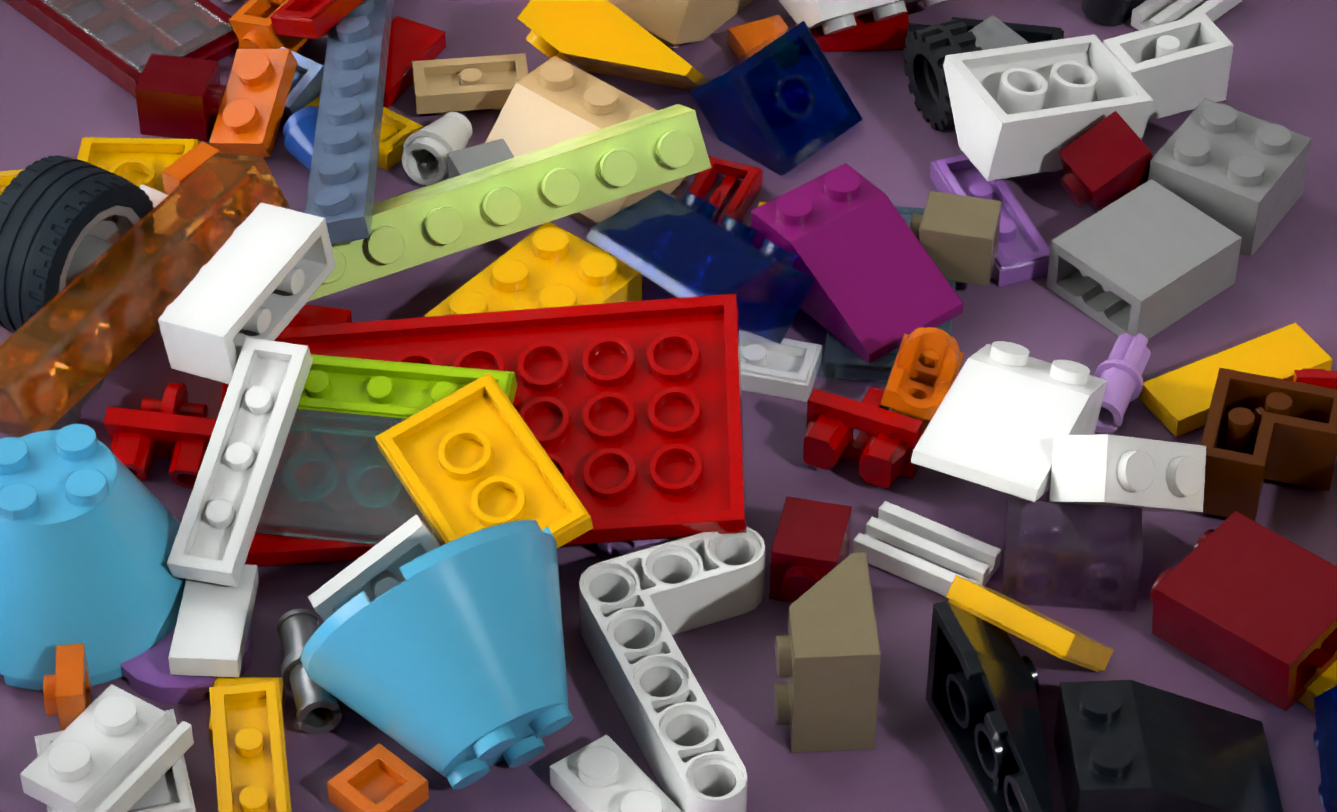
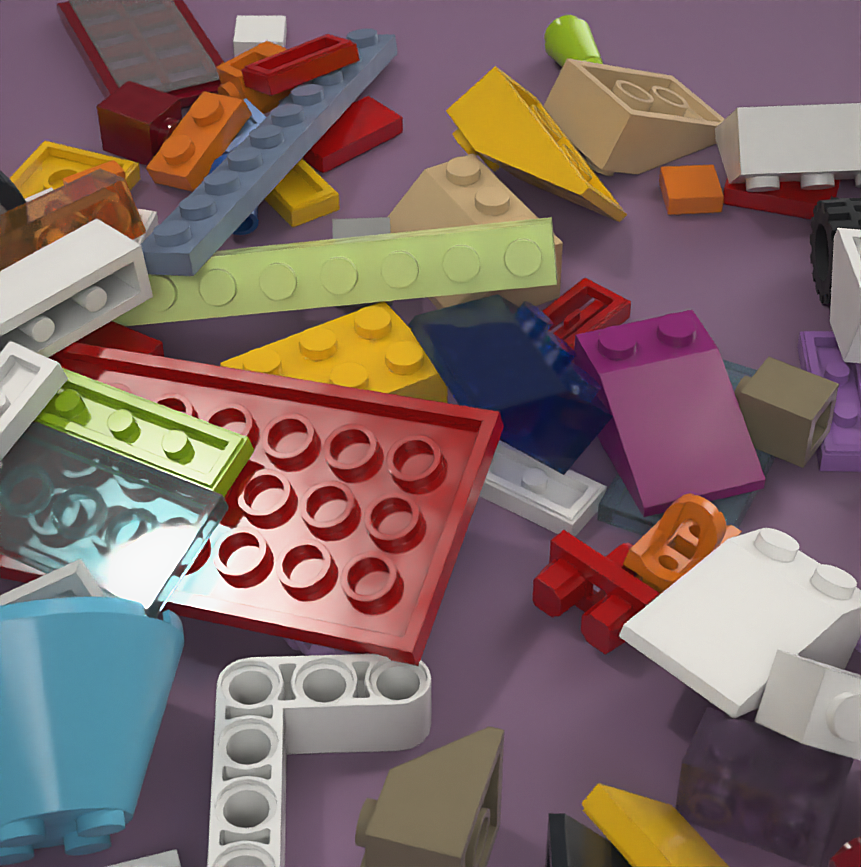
camera: 20 degrees right, 0 degrees up
(428, 148) = (351, 203): white cone -> none
(466, 82) = (390, 163): tan plate -> none
(480, 466) = (169, 534): yellow tile -> none
(778, 101) = (674, 241): clear blue slope -> none
(807, 545) = (486, 691): dark red brick -> none
(931, 545) = (623, 731): white tile -> none

